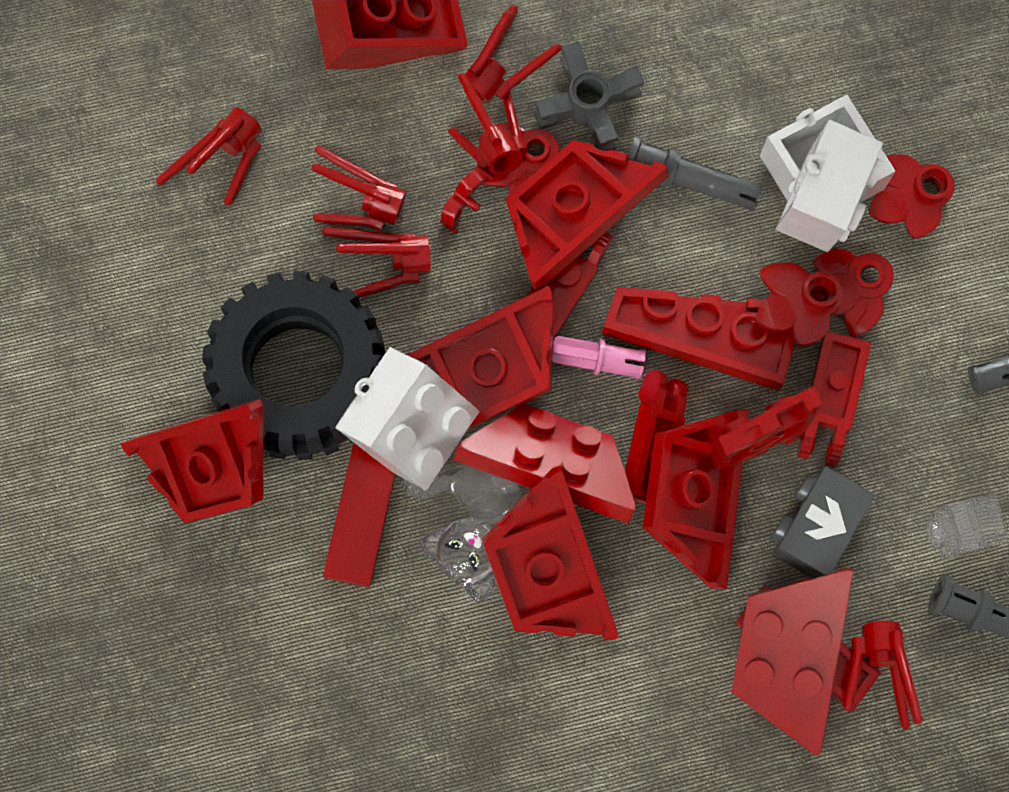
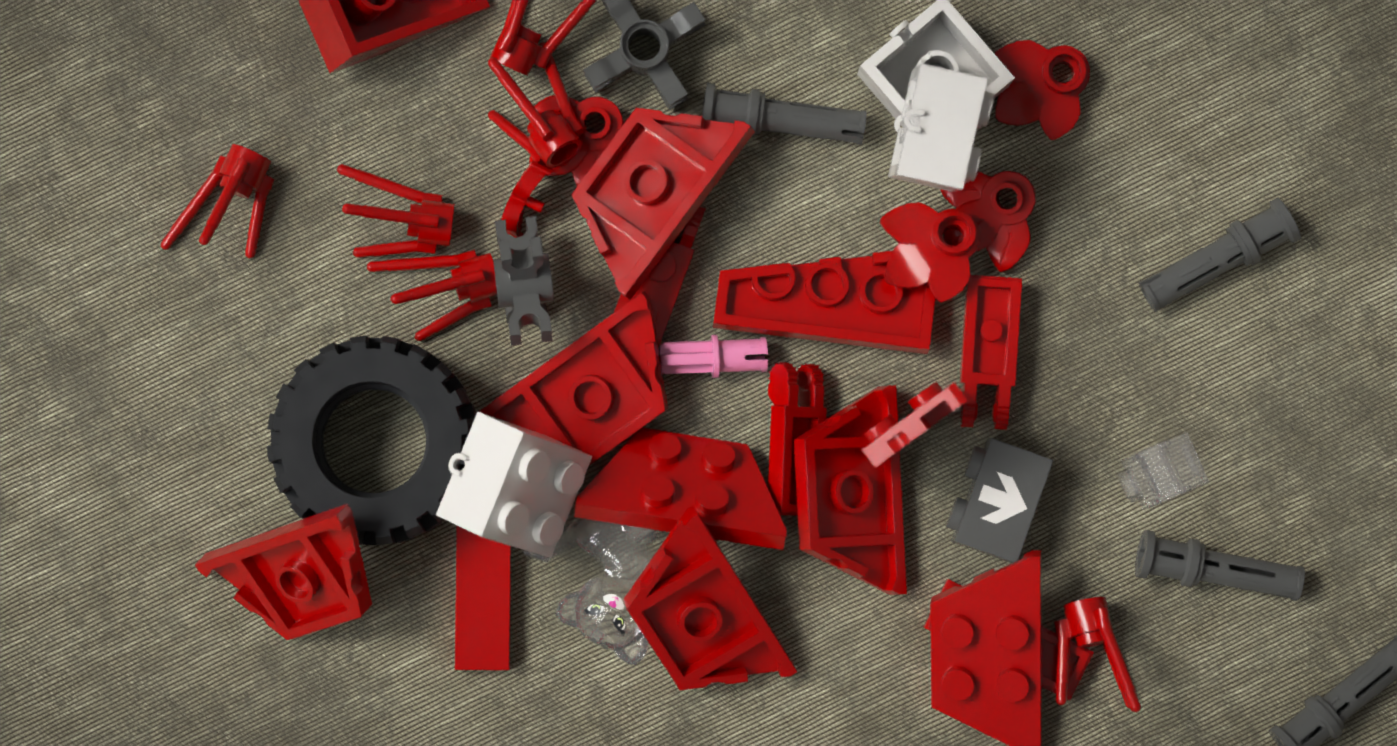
camera: 10 degrees left, 10 degrees up
(451, 256) = (523, 280): none -> dark grey pin

